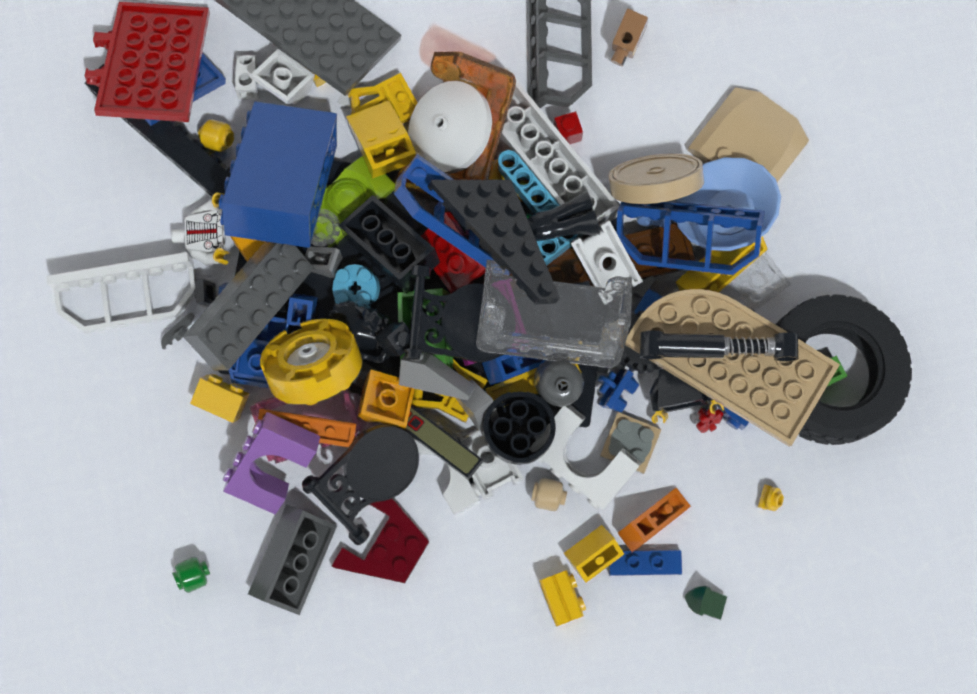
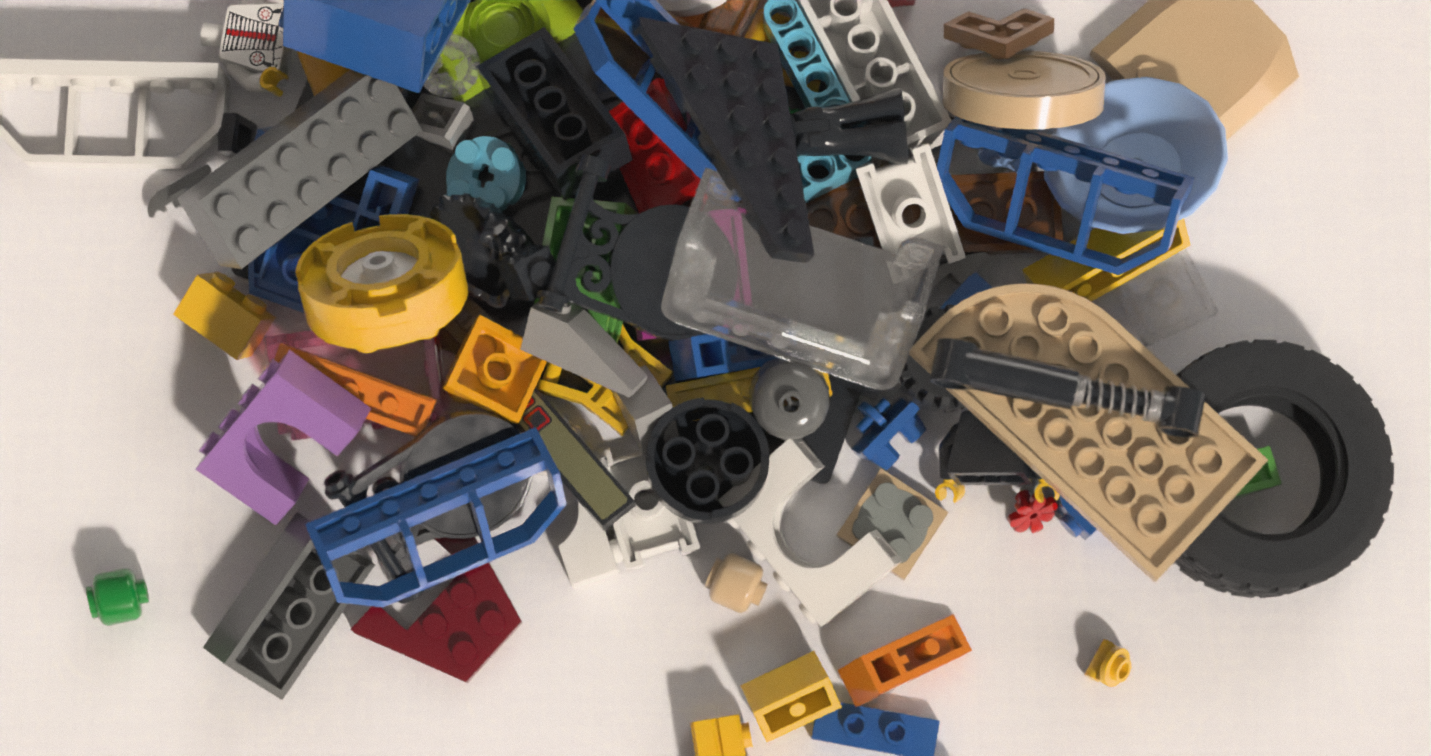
camera: 15 degrees right, 0 degrees up
(364, 480) = (431, 496): none -> blue plate
(636, 150) = (1001, 37): none -> medium nougat plate

